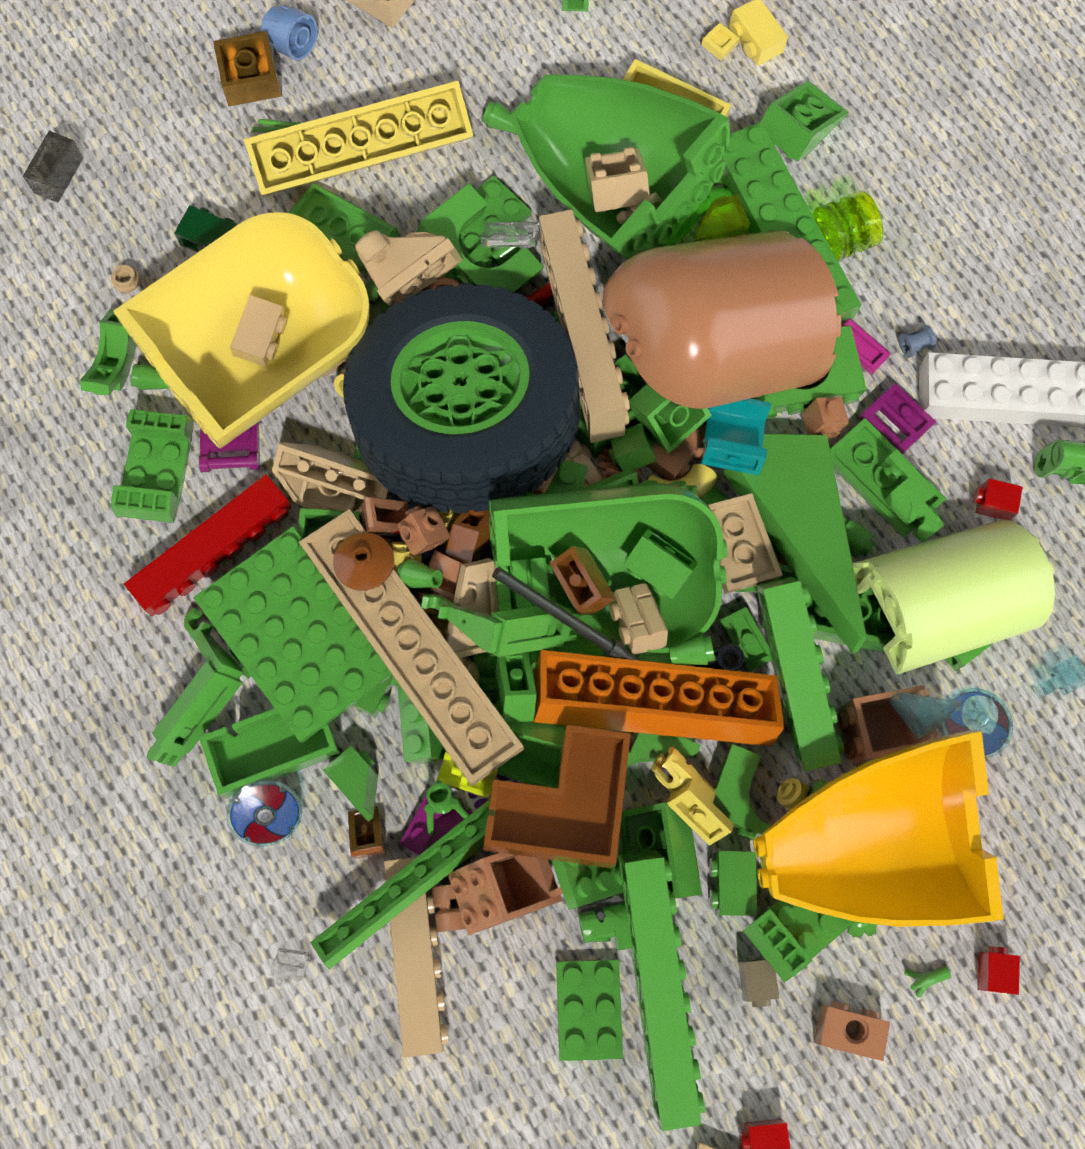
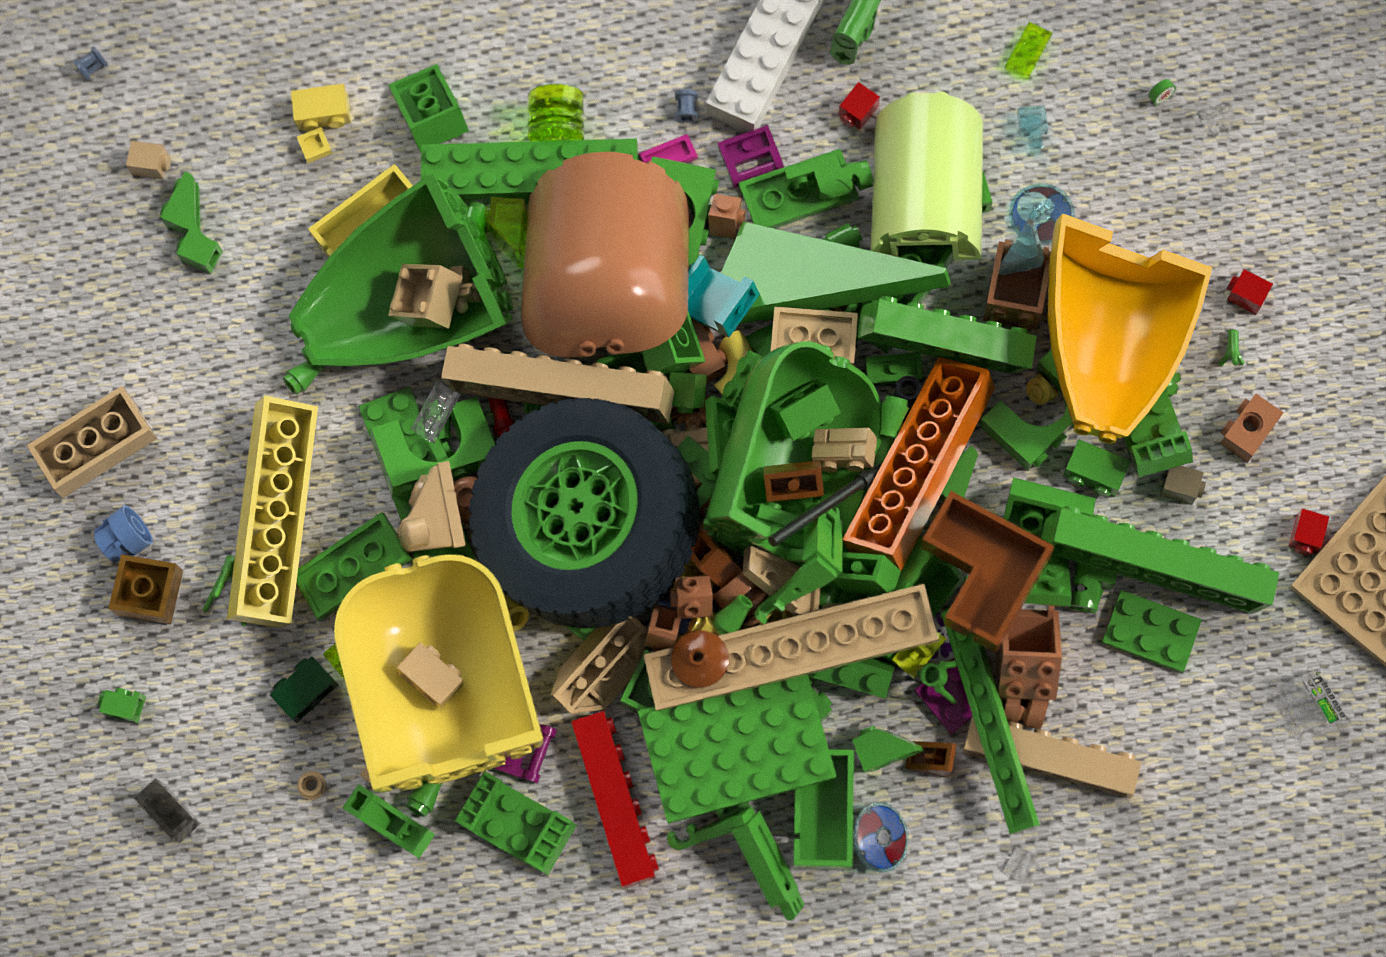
camera: 55 degrees left, 0 degrees up
(137, 95) = (122, 704): none -> bright green brick
(691, 796) = (1012, 470): light yellow plate -> none

